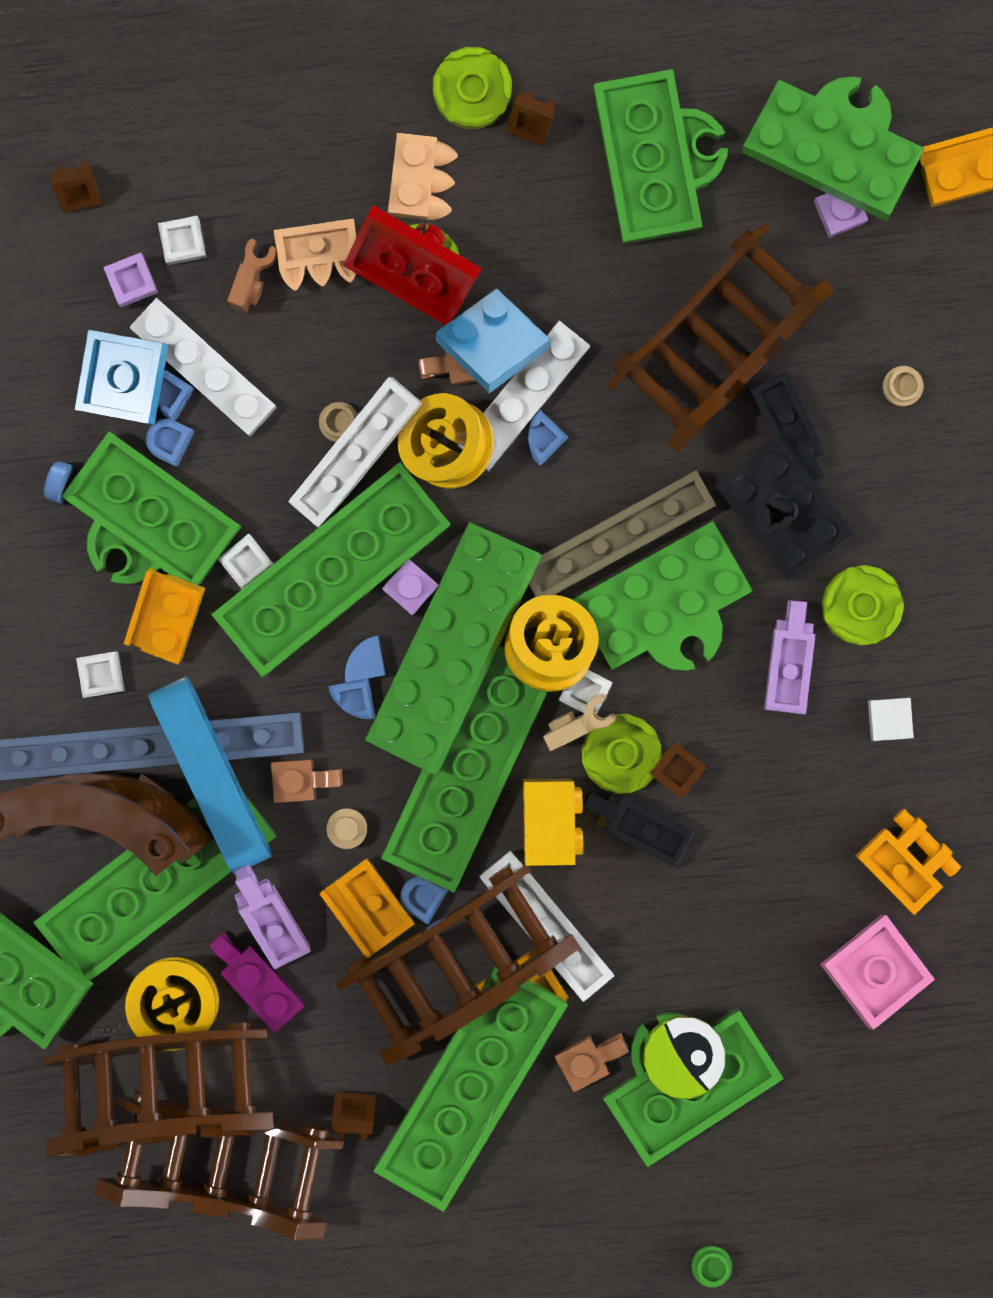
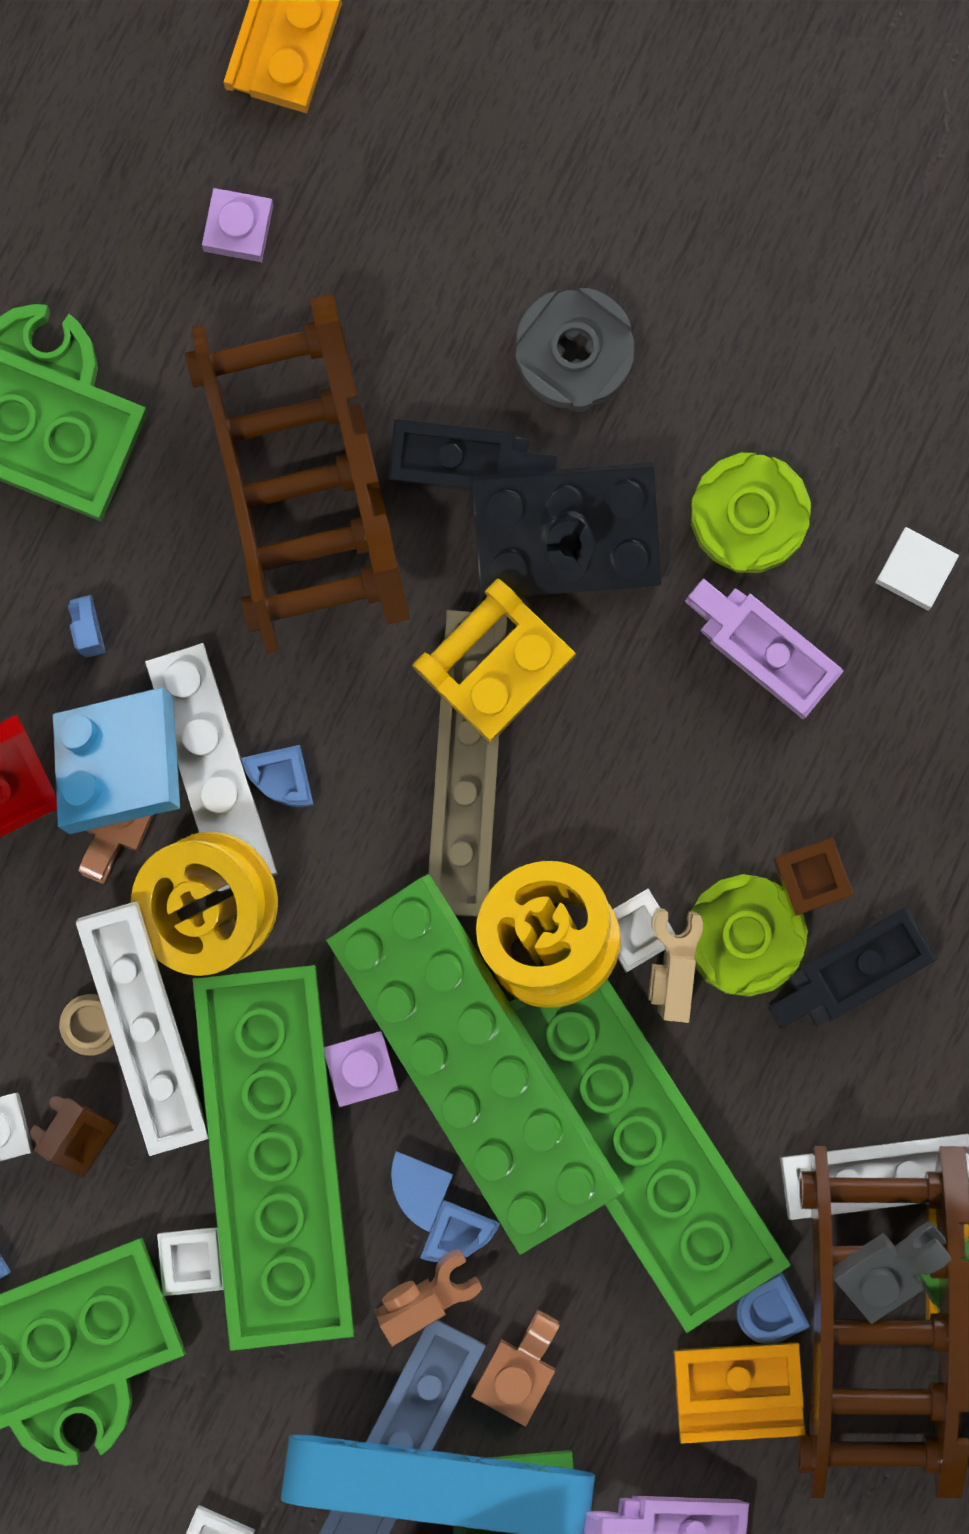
camera: 55 degrees left, 5 degrees down
(164, 615) = (192, 1413): light orange plate -> none
(272, 453) = (73, 1136): none -> reddish brown tile
(299, 700) = (416, 1306): none -> nougat plate
(346, 828) = (619, 1352): tan plate -> none
(481, 948) = (886, 1275): none -> dark grey plate
(550, 821) = (777, 1081): yellow brick -> none
(557, 274) = (85, 627): none -> medium blue tile
(667, 600) = (588, 760): bright green plate -> none
(682, 528) = (508, 675): none -> yellow plate
(835, 144) = (151, 178): bright green plate -> none
(903, 386) = (507, 288): tan plate -> none
(909, 430) = (570, 314): none -> dark grey plate

